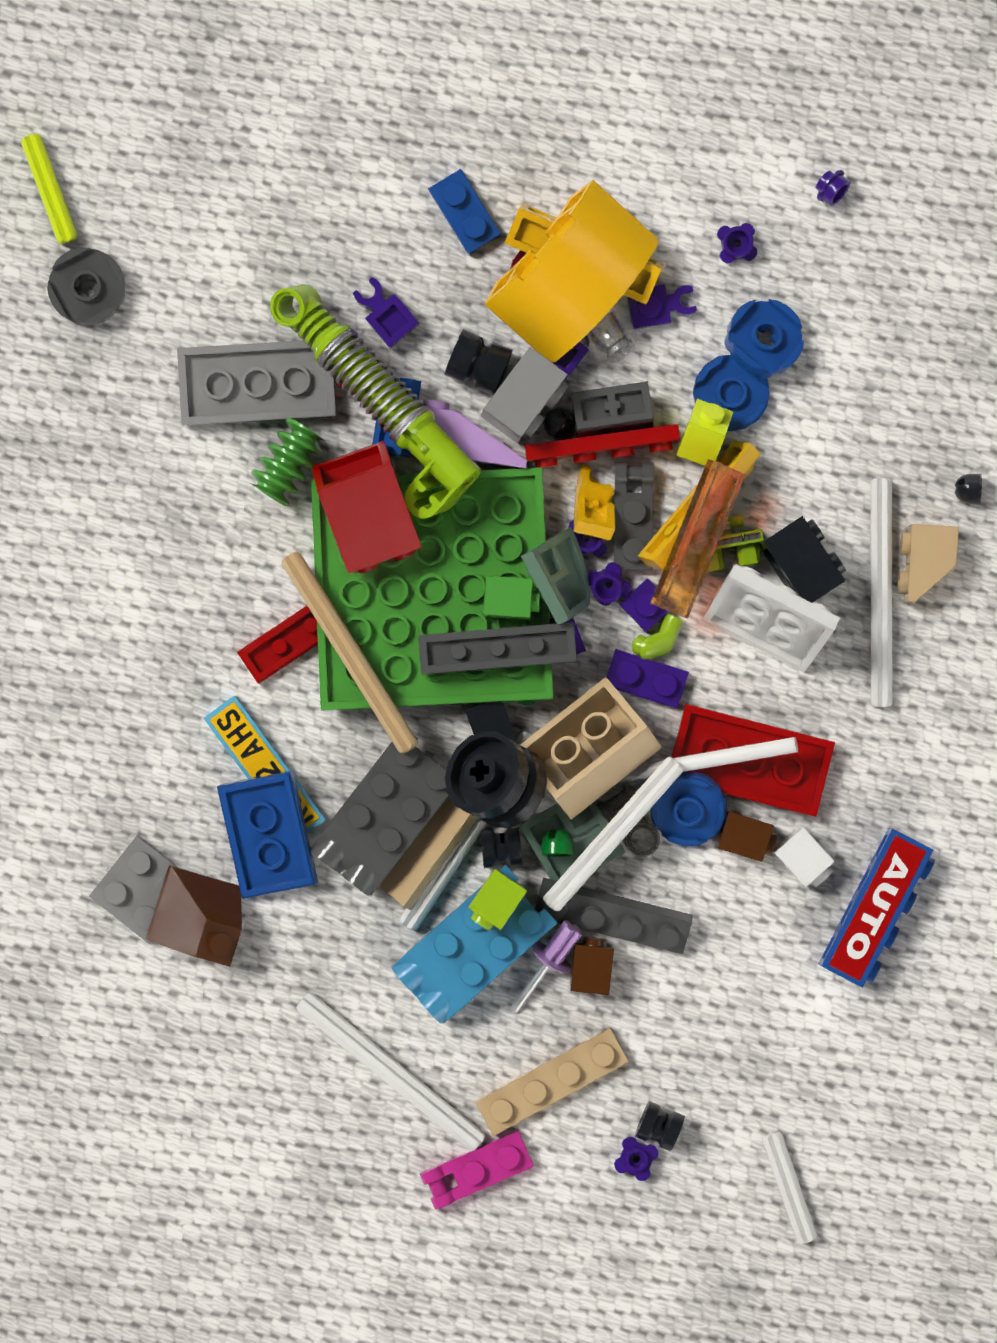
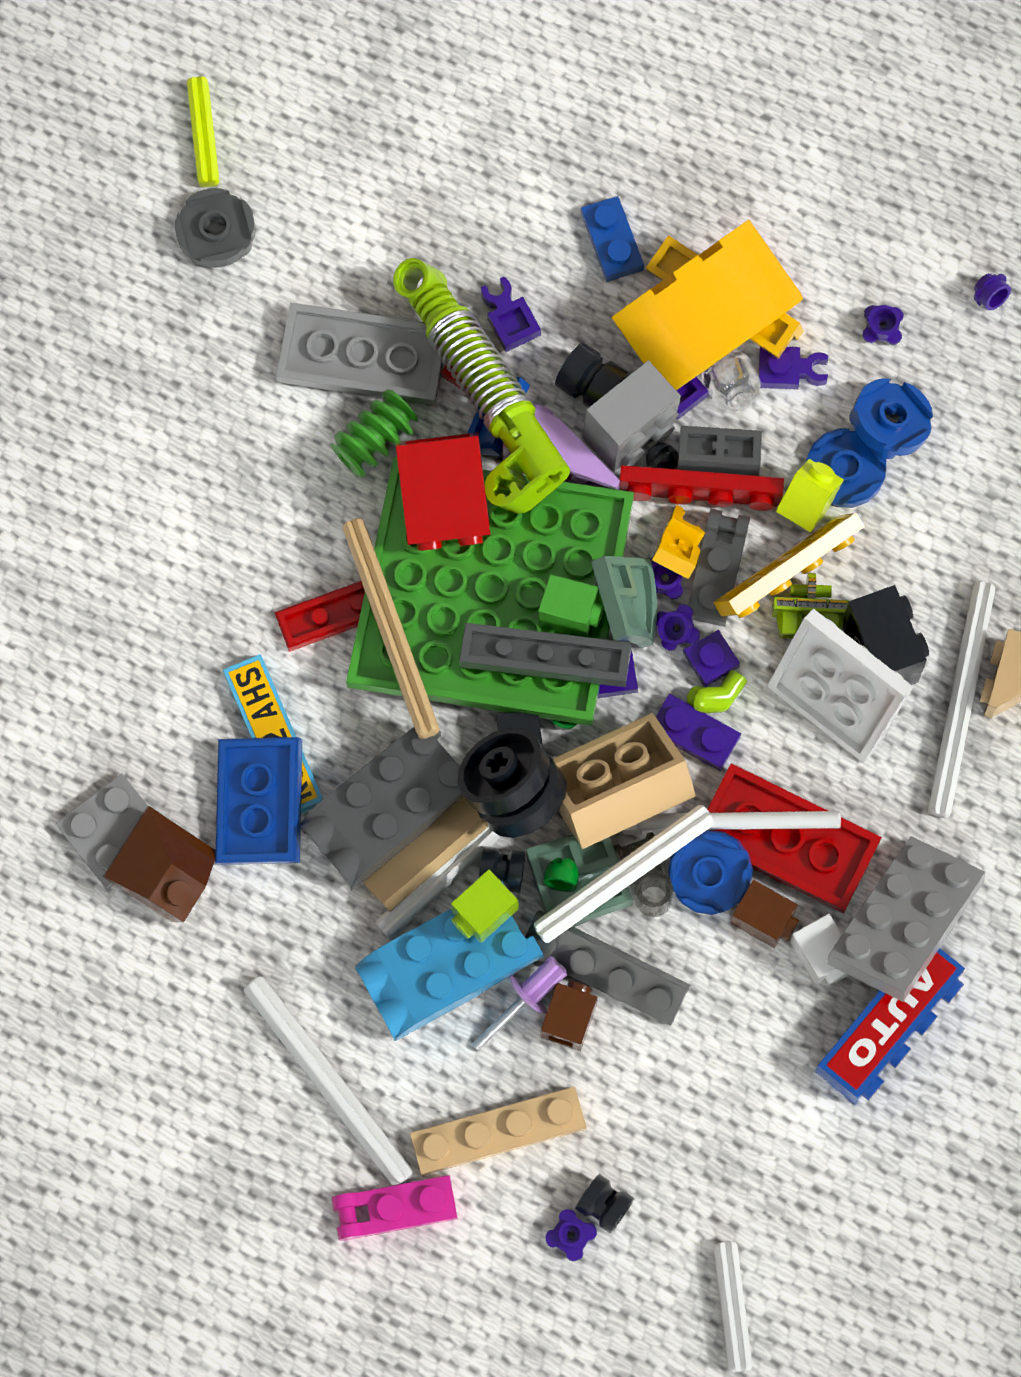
camera: 20 degrees right, 15 degrees down
(697, 538) = (779, 591): clear orange tile -> none
(873, 816) = (906, 918): none -> light grey plate

